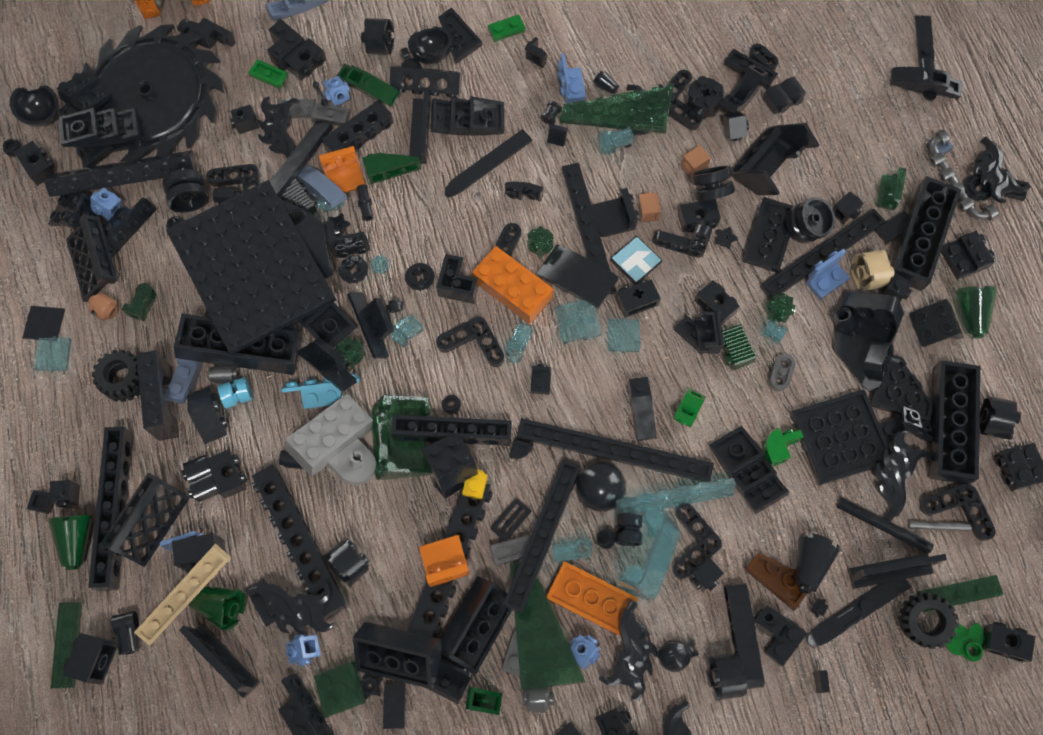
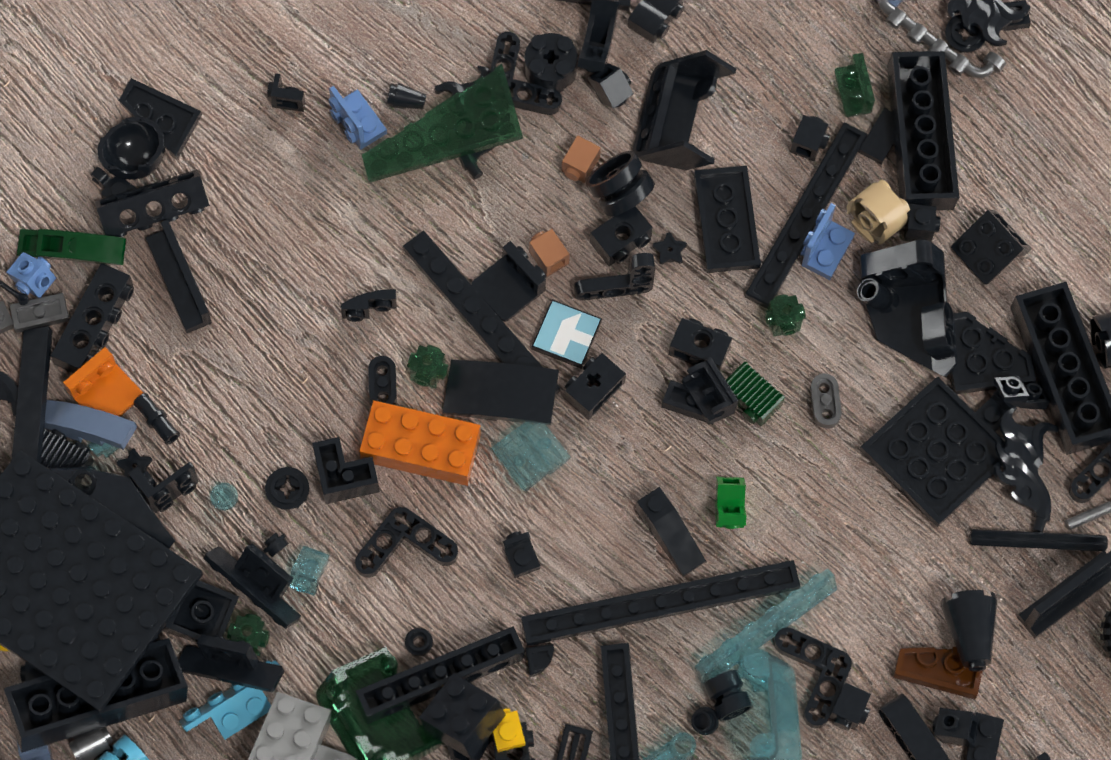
camera: 30 degrees left, 0 degrees up
(349, 263) = (180, 513): black gear -> none
(378, 36) = (50, 168): black brick -> none
(387, 166) = (161, 352): dark green slope -> none
(467, 117) = (236, 231): black slope -> none
(487, 163) = (298, 286): black piece -> none
(506, 28) = (223, 74): green plate -> none
(518, 342) = (467, 517): clear light blue piece -> none
(557, 109) = (350, 175): black bush -> none
(557, 135) = (375, 203): black tile -> none
(600, 486) = (666, 658): black cylinder -> none
(611, 140) = (454, 179): clear light blue piece -> none
(623, 335) = (599, 444): clear light blue piece -> none
(751, 471) = (837, 543): black slope -> none
(775, 332) = (793, 351): clear light blue wheel -> none
(776, 445) = (861, 504): green brick -> none
(810, 220) = (770, 179): black wheel -> none
(820, 607) = (1005, 680): black plate -> none
(856, 612) = (1051, 664): black piece -> none
(968, 255) = (990, 134): black plate -> none
(977, 308) = (1032, 205): clear green cone -> none

